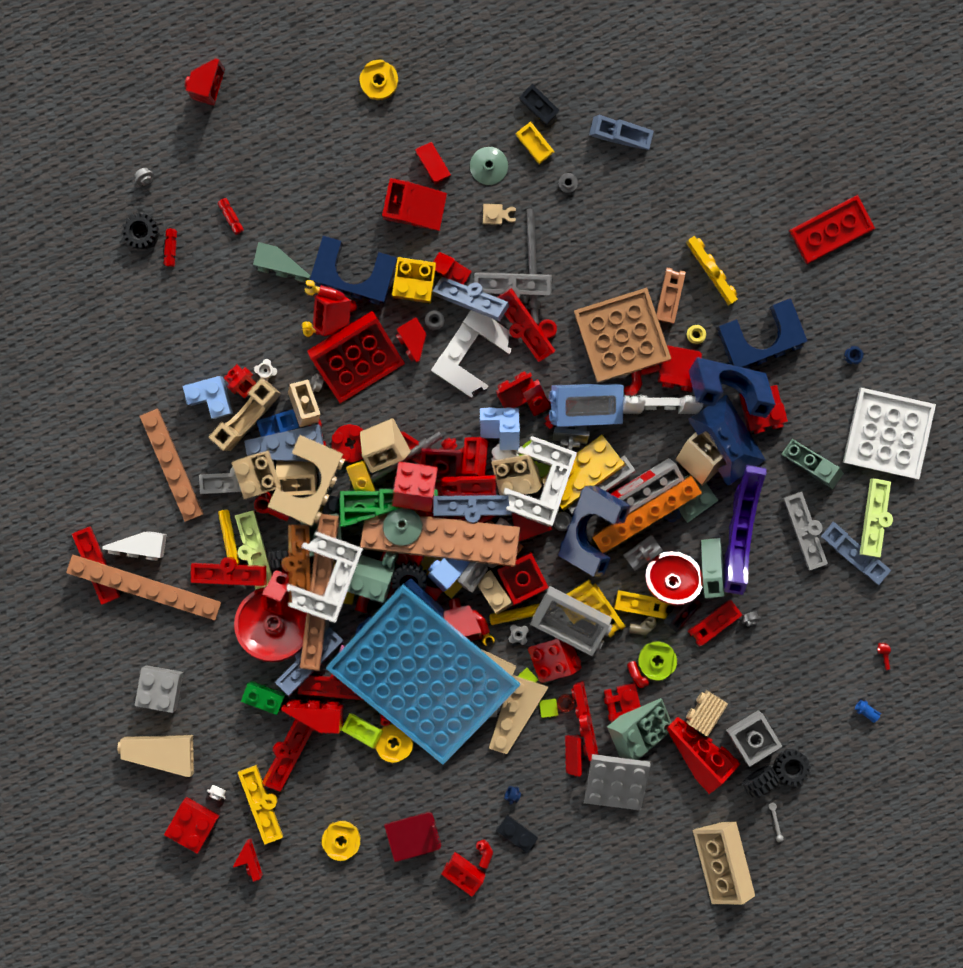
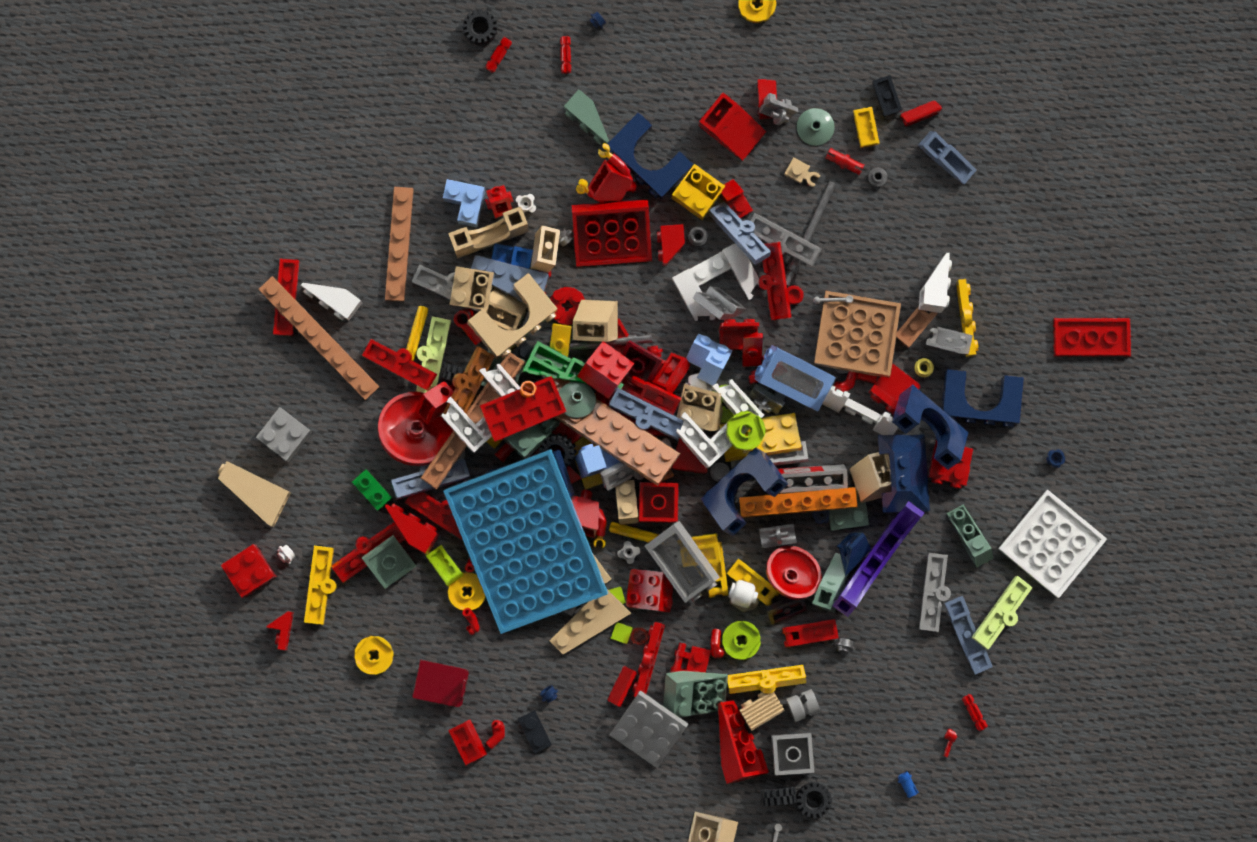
camera: 25 degrees right, 5 degrees down
(243, 170) = (597, 20): none -> dark blue plate
(311, 753) = (389, 561): none -> sand green plate
(352, 540) = (529, 386): none -> orange hinge
(358, 561) = (515, 413): none -> red plate
(416, 770) = (472, 619): none -> red arm
(448, 168) = (780, 111): none -> flat silver hips
(485, 372) = (719, 303): none -> flat silver slope
(531, 184) = (845, 161): none -> red pin
(577, 104) = (921, 113): none -> red slope
(578, 476) = (751, 421): none -> lime plate
(598, 308) = (849, 299): none -> light grey hinge
(638, 620) = (742, 593): none -> white head
(672, 261) = (934, 293): none -> white slope
(697, 684) = (766, 680): none -> yellow hinge
(708, 298) = (950, 340): none -> light grey hinge
(716, 530) = (853, 550): none -> dark blue slope
(736, 695) = (803, 705): none -> light grey wheel
(894, 617) = (974, 712): none -> red axle

